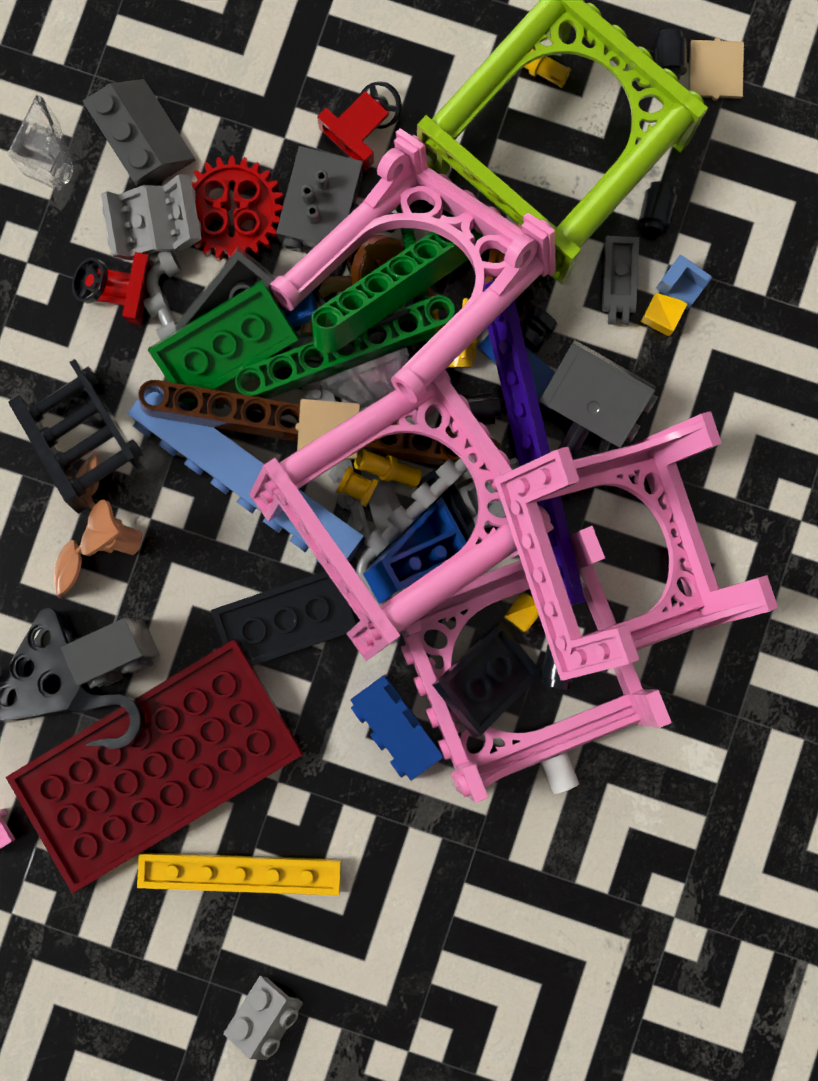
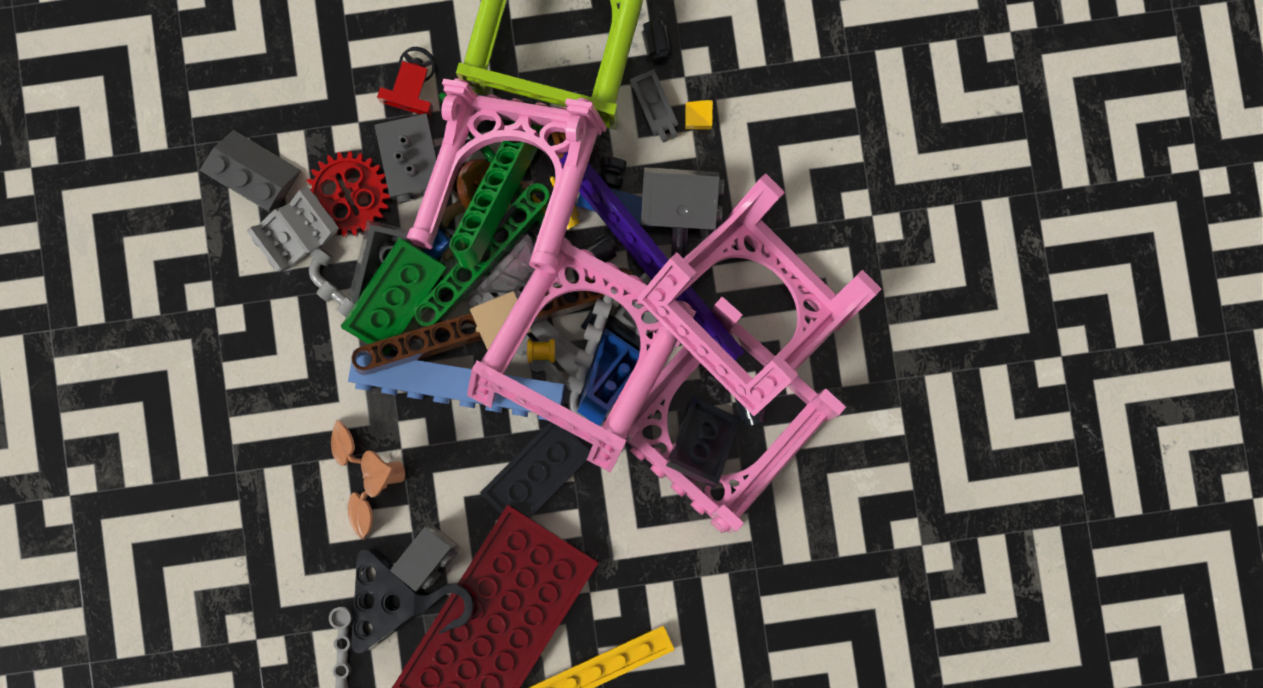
camera: 30 degrees left, 0 degrees up
(41, 147) = (187, 219): clear slope -> none
(60, 463) = (318, 441): black fence -> none
(115, 286) = (289, 293): red piece -> none
(387, 468) = (556, 326): yellow pin -> none
(396, 728) = (655, 510): blue wedge -> none
(522, 612) = (704, 382): yellow slope -> none
(560, 773) = (788, 483): white piece -> none
(684, 281) = (702, 85): medium blue panel -> none

